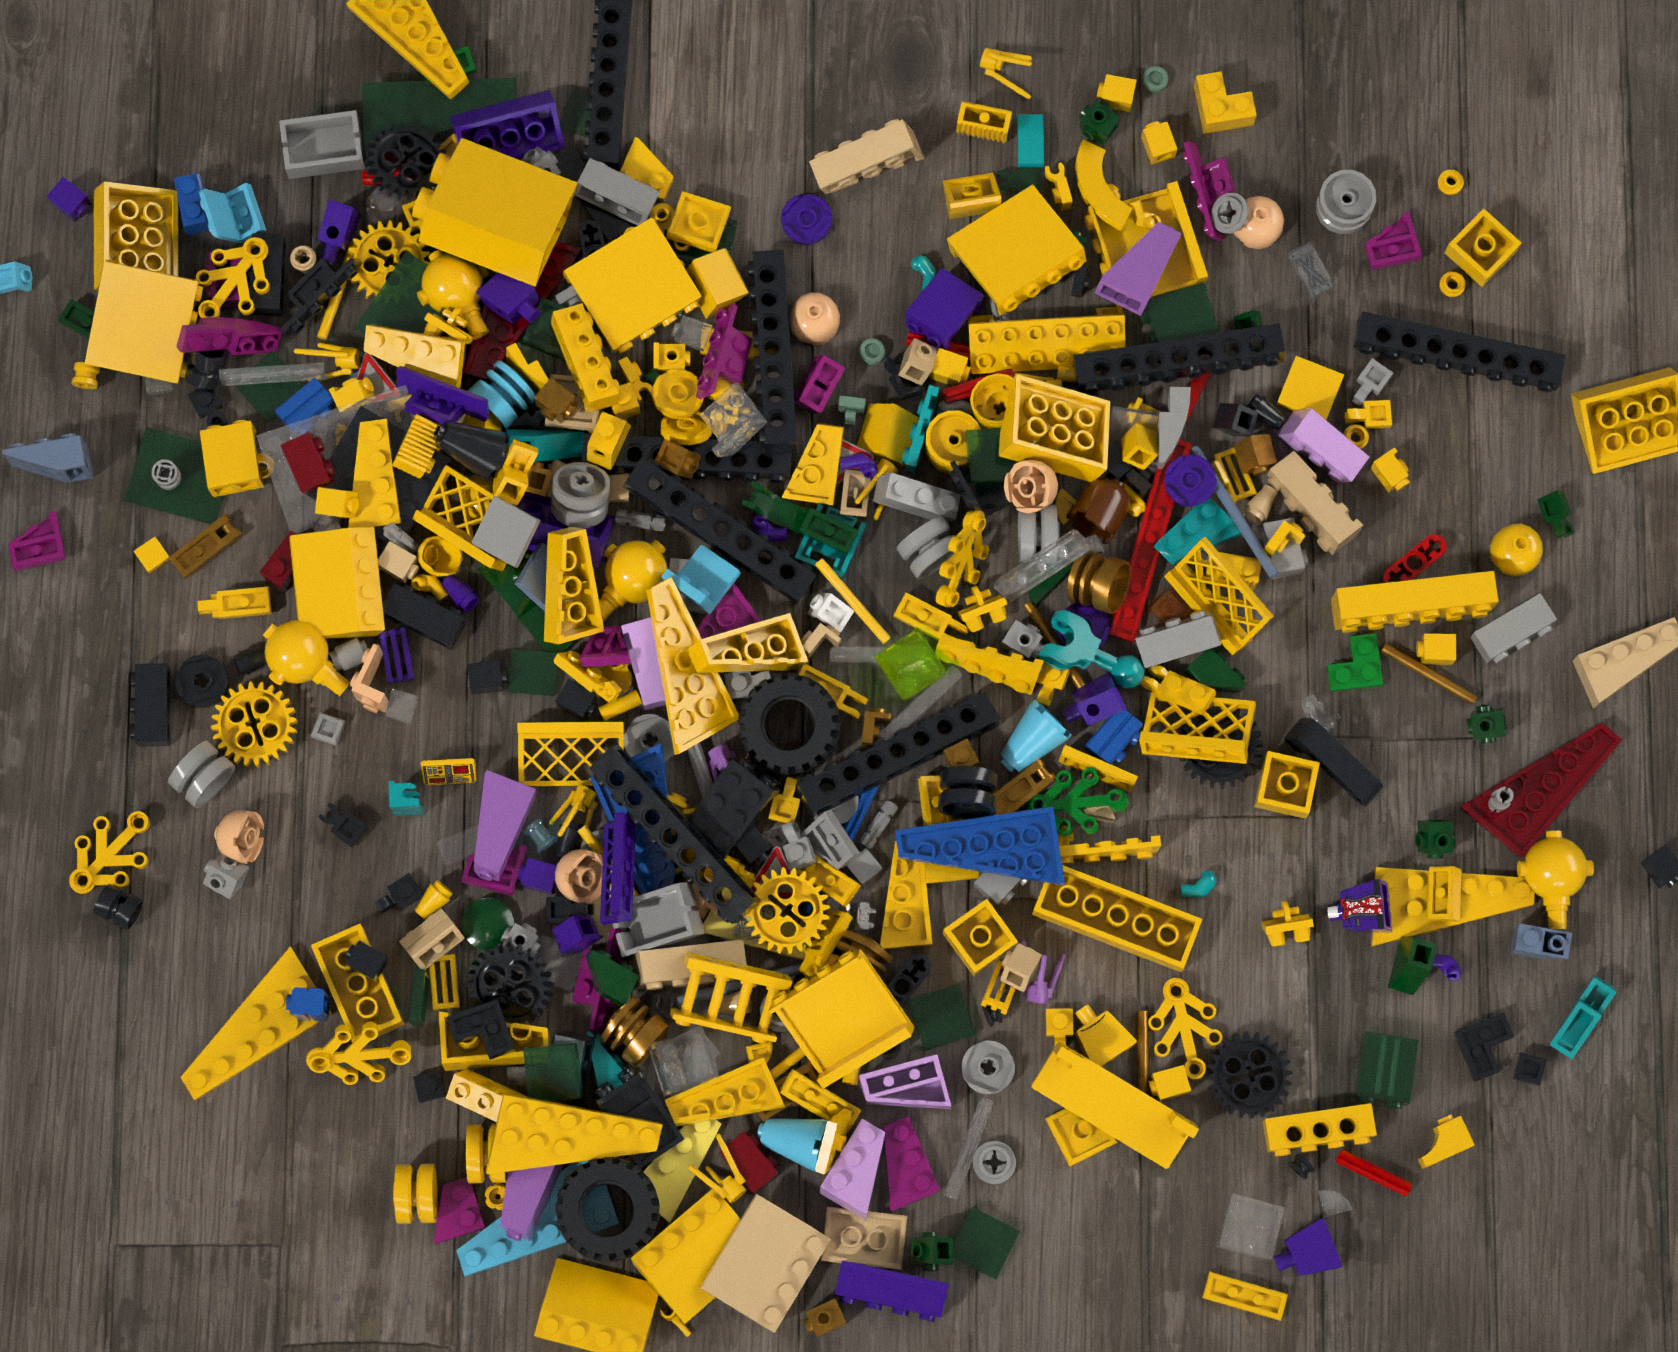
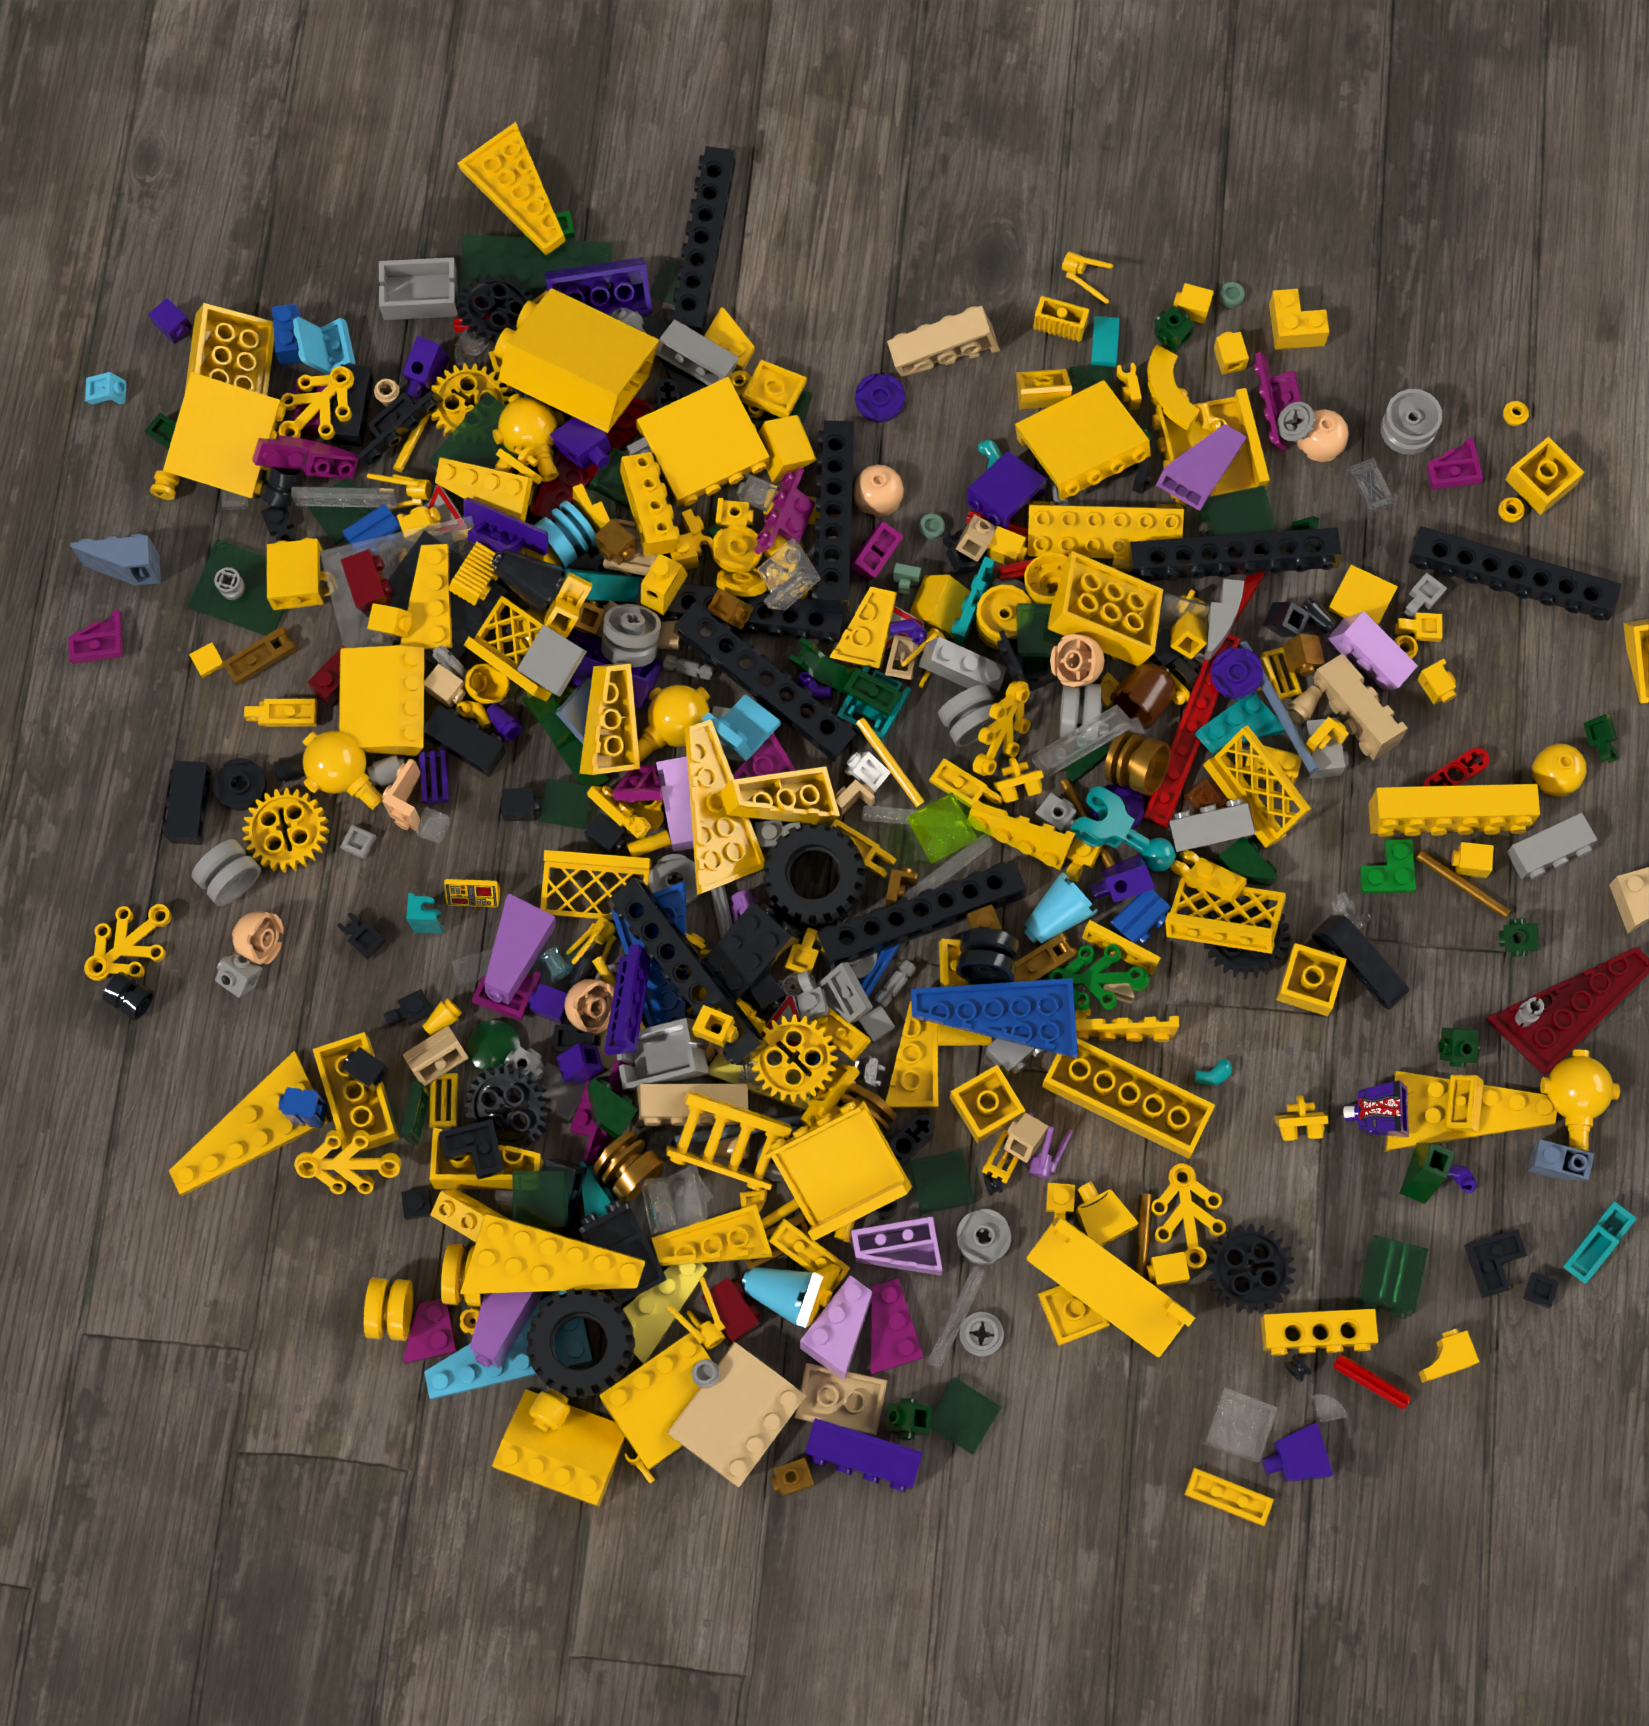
camera: 10 degrees right, 5 degrees down
(584, 1277) = (549, 1410): none -> yellow head
(700, 882) = (710, 1018): none -> yellow brick
(732, 1227) = (705, 1373): none -> light grey plate

